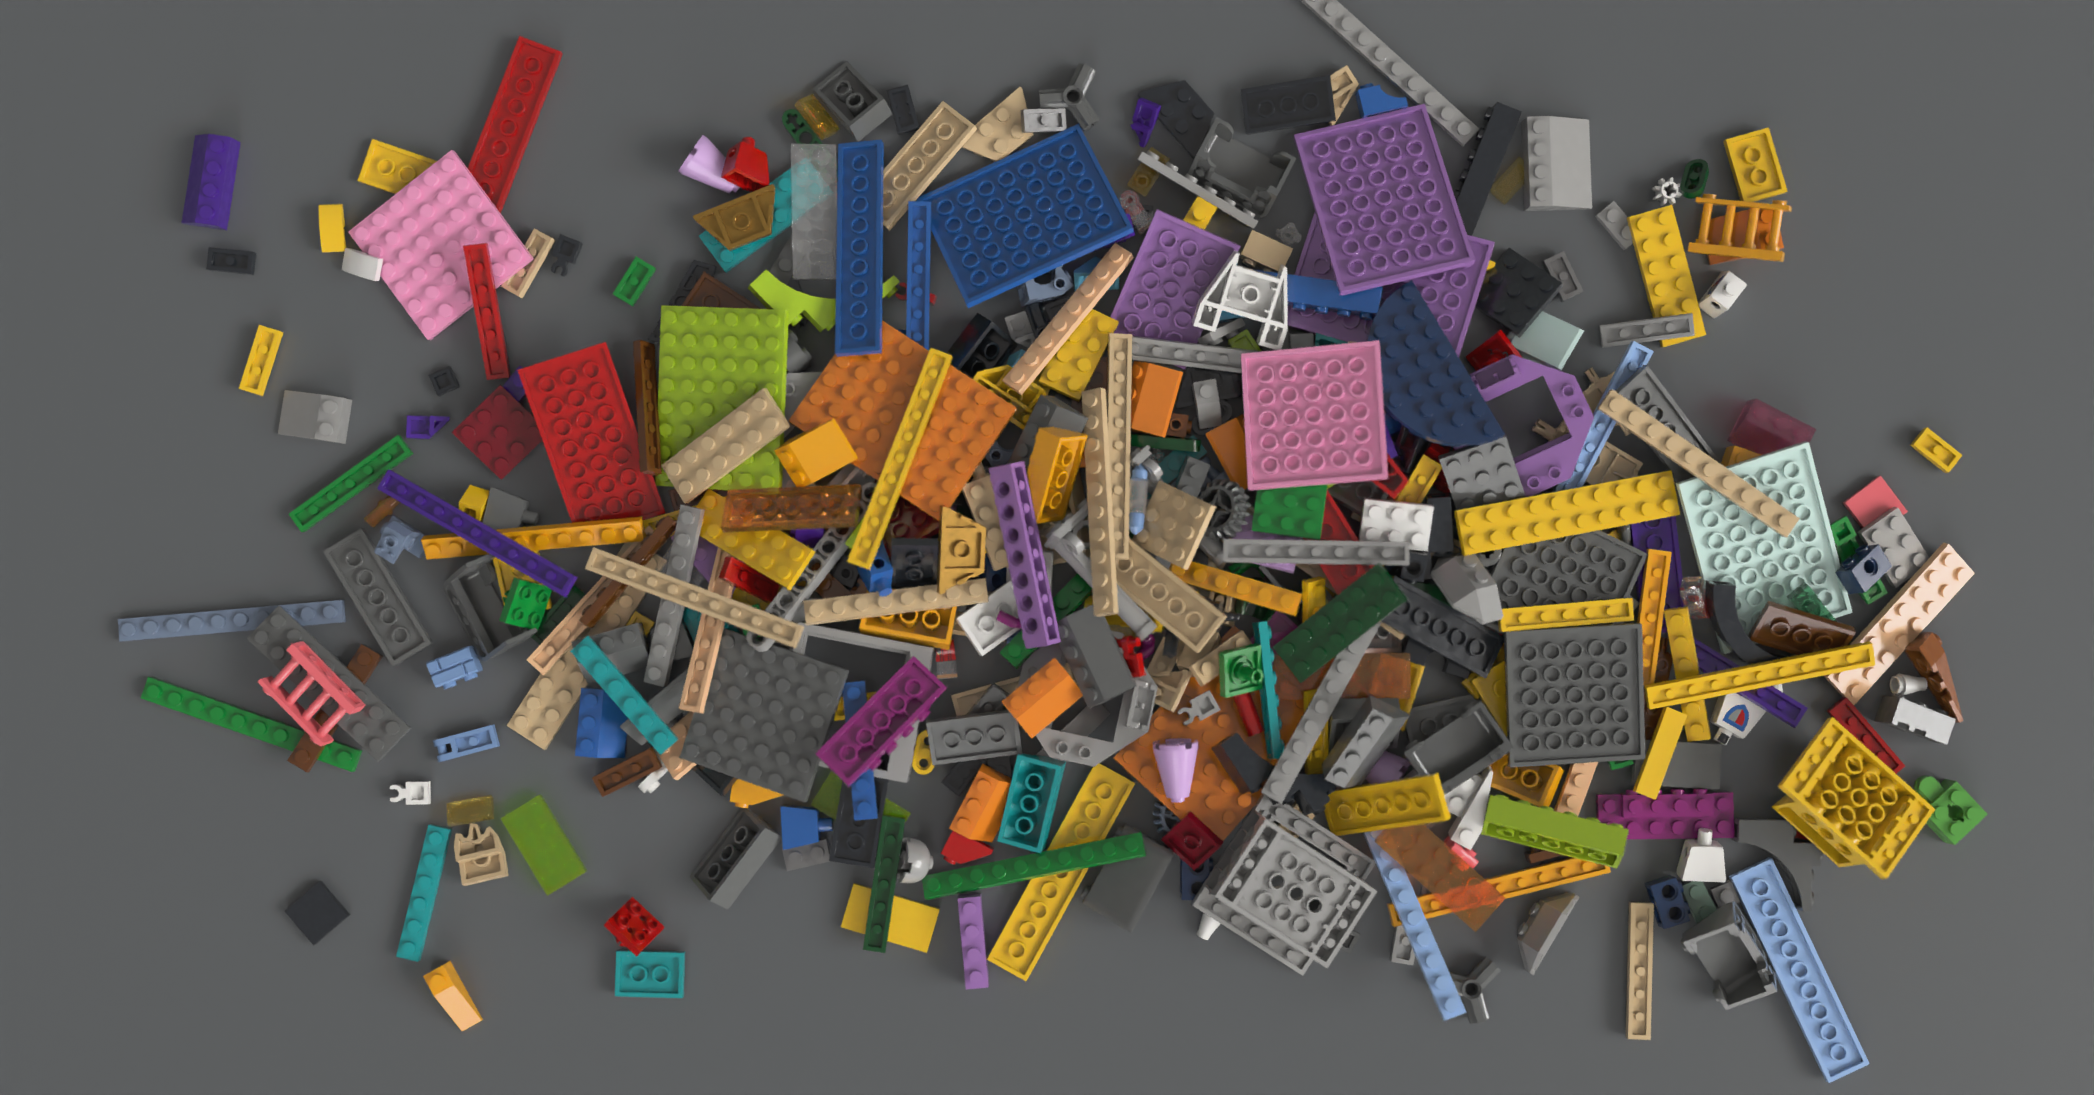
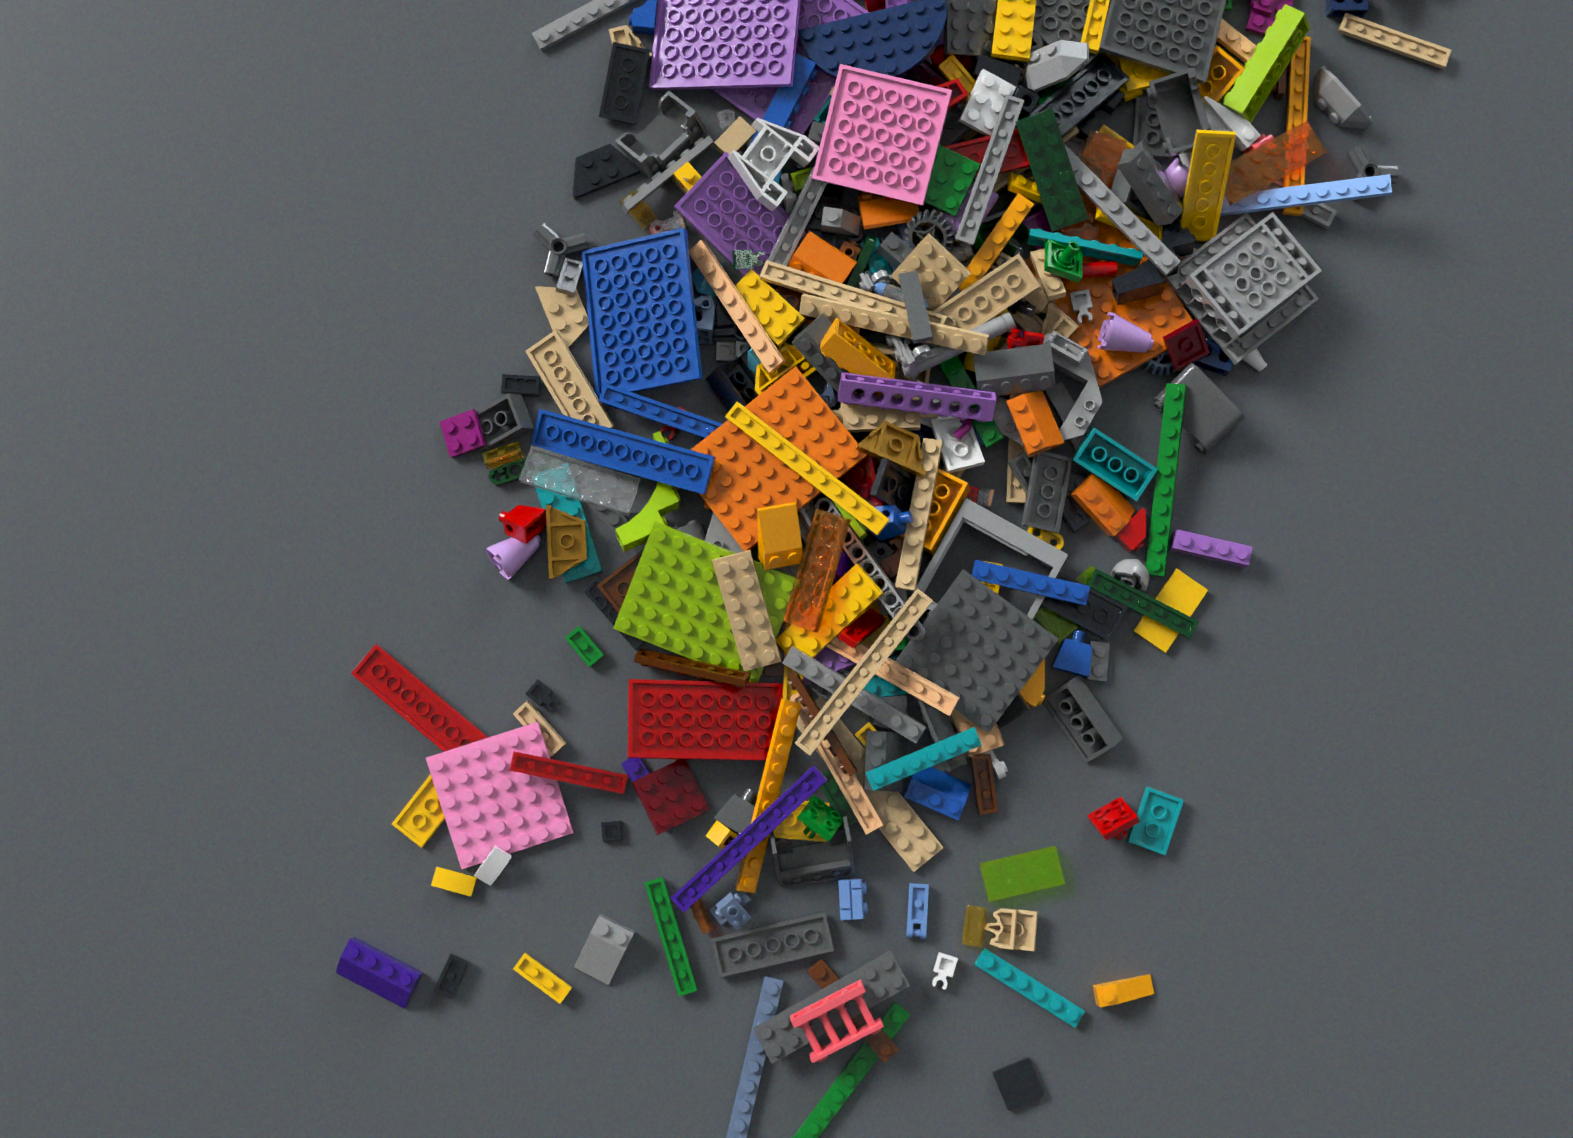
camera: 75 degrees left, 5 degrees down
(424, 426) = (644, 859): dark purple slope -> none
(826, 64) = (462, 433): none -> magenta plate
(881, 722) = (1014, 554): magenta plate -> none
(1049, 896) = (1194, 478): yellow plate -> none
(1124, 519) = (915, 307): none -> dark grey tile
(1127, 310) = (745, 258): none -> clear green plate
(1145, 119) = (595, 198): dark purple slope -> none

